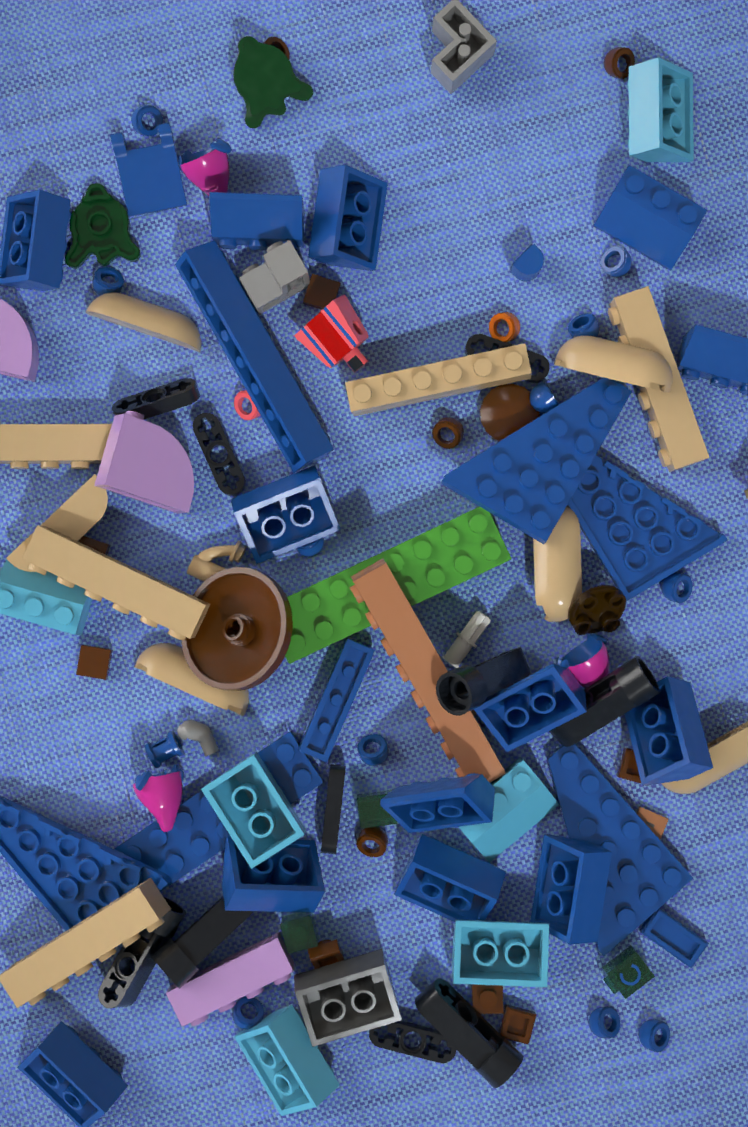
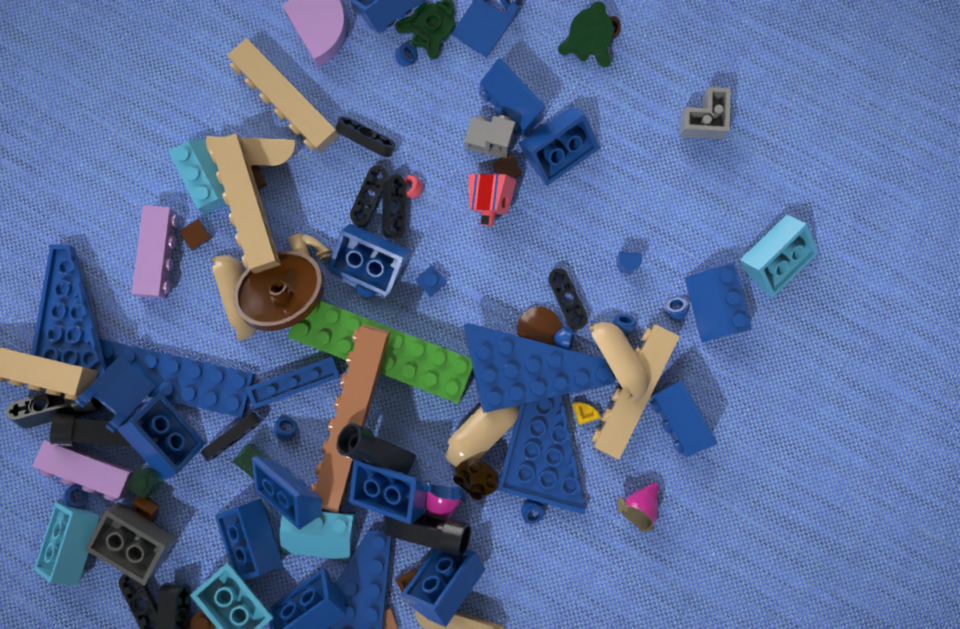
camera: 45 degrees right, 5 degrees down
(75, 717) = (154, 252): none -> lavender brick
(146, 319) = (405, 92): tan brick -> none
(146, 464) = (325, 161): lavender brick -> none
(161, 794) = (153, 336): dark pink hat -> none
(164, 749) = (180, 315): blue bush -> none
(190, 873) = (119, 389): none -> blue flag
(198, 732) = (207, 325): light grey arm -> none
(208, 167) = (515, 49): dark pink hat -> none
(245, 419) = (388, 190): none -> black beam
(254, 356) = (438, 165): blue brick -> none
(254, 810) = (187, 392): medium azure slope -> none
(362, 474) = (431, 281): none -> blue plate
(375, 834) = (238, 473): reddish brown piece -> none
(438, 380) = (519, 272): tan brick -> none
(454, 425) = (503, 305): reddish brown piece -> none
(467, 639) = (393, 422): white axle -> none
(513, 322) = (588, 286): orange piece -> none
(611, 61) = (780, 203): reddish brown piece -> none
(632, 447) = (584, 412): none -> yellow tile

